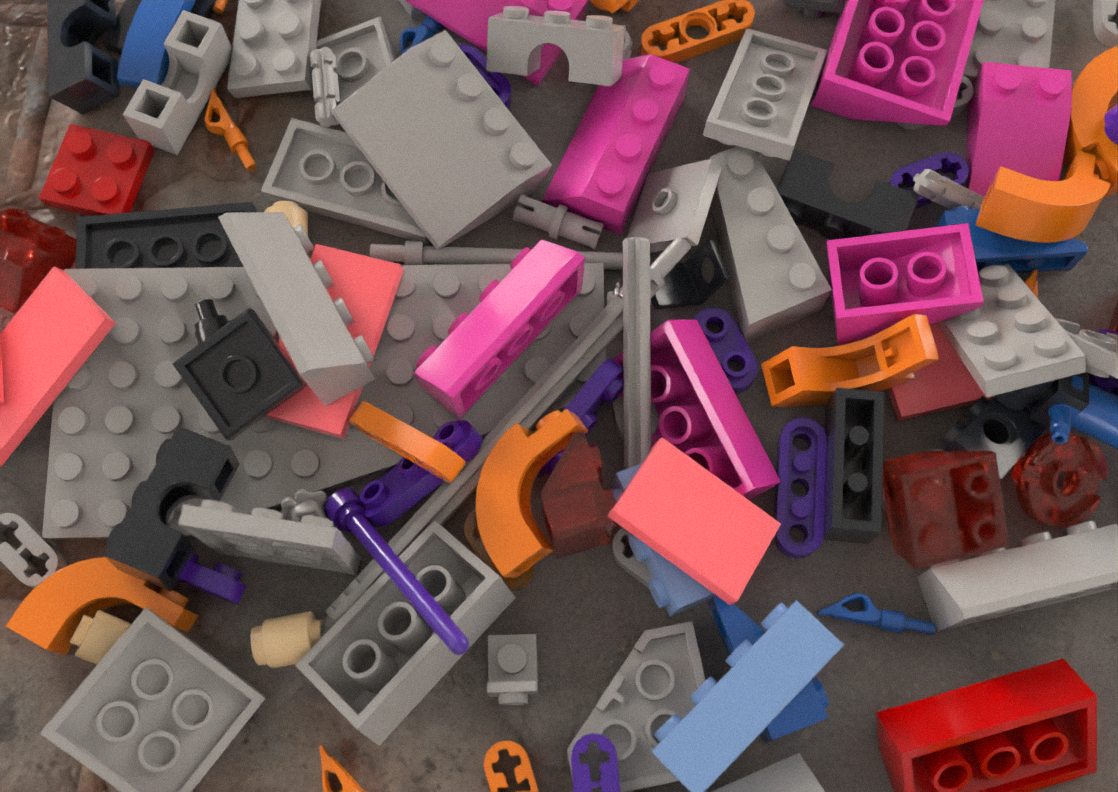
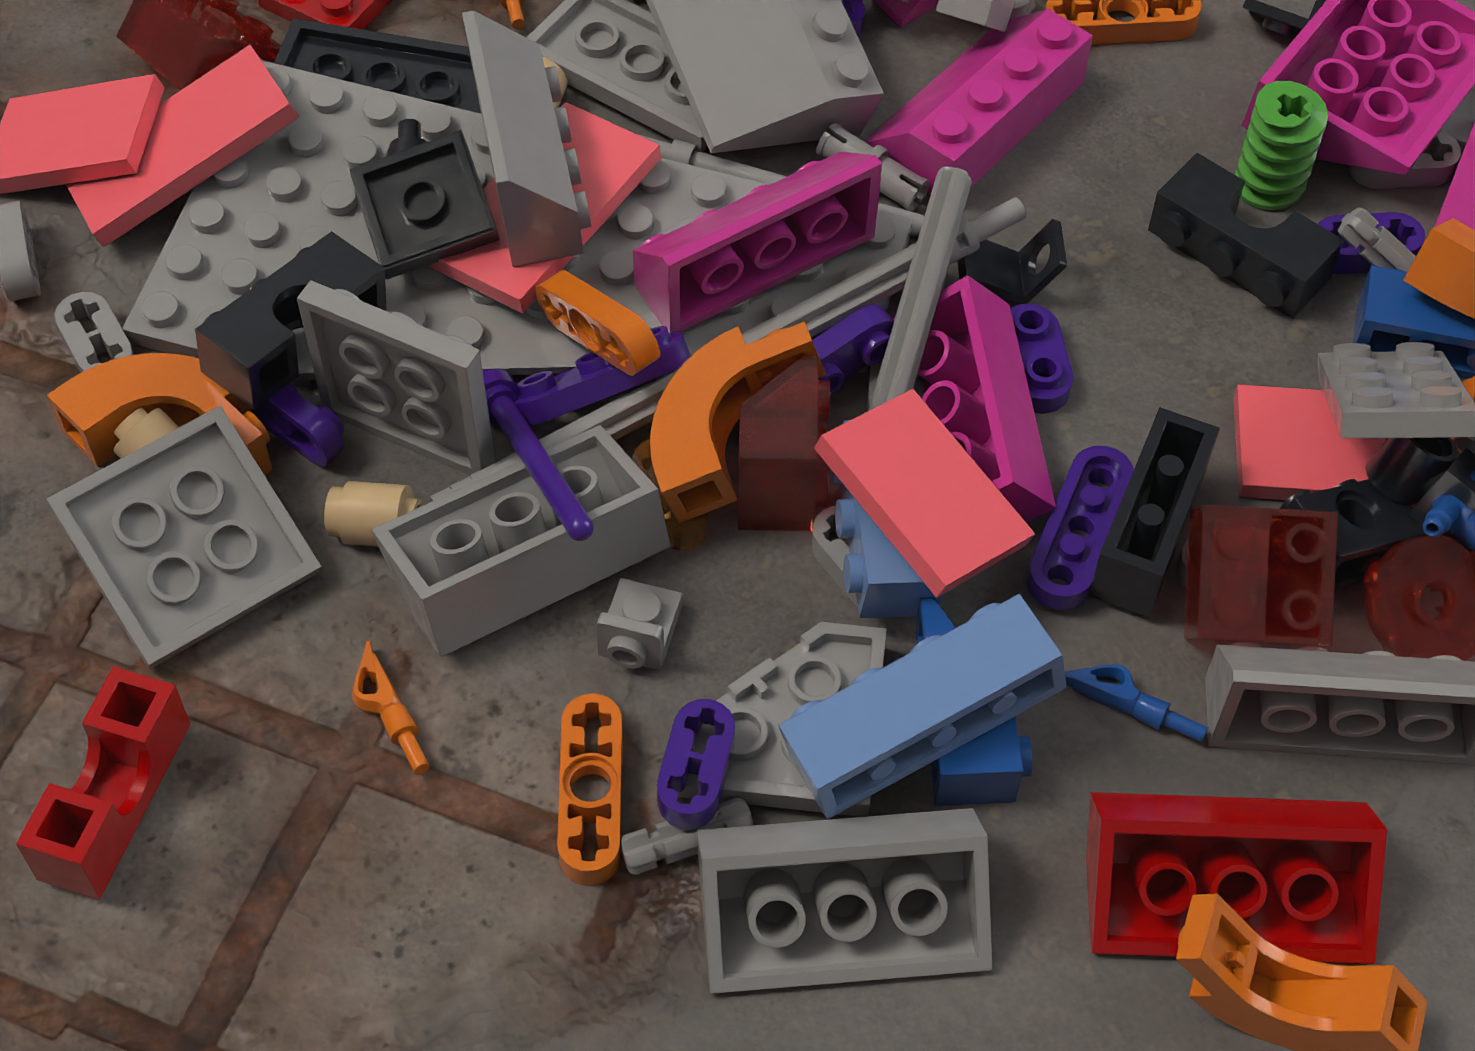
camera: 15 degrees right, 15 degrees down
(675, 204) = (1029, 172): light grey plate -> none
(764, 252) = (1123, 258): light grey wedge -> none
(765, 94) = (1177, 86): light grey plate -> none
(851, 124) = (1281, 144): none -> bright green piece
(873, 364) = (1122, 396): orange arch -> none
(899, 275) = (1279, 320): dark pink slope -> none

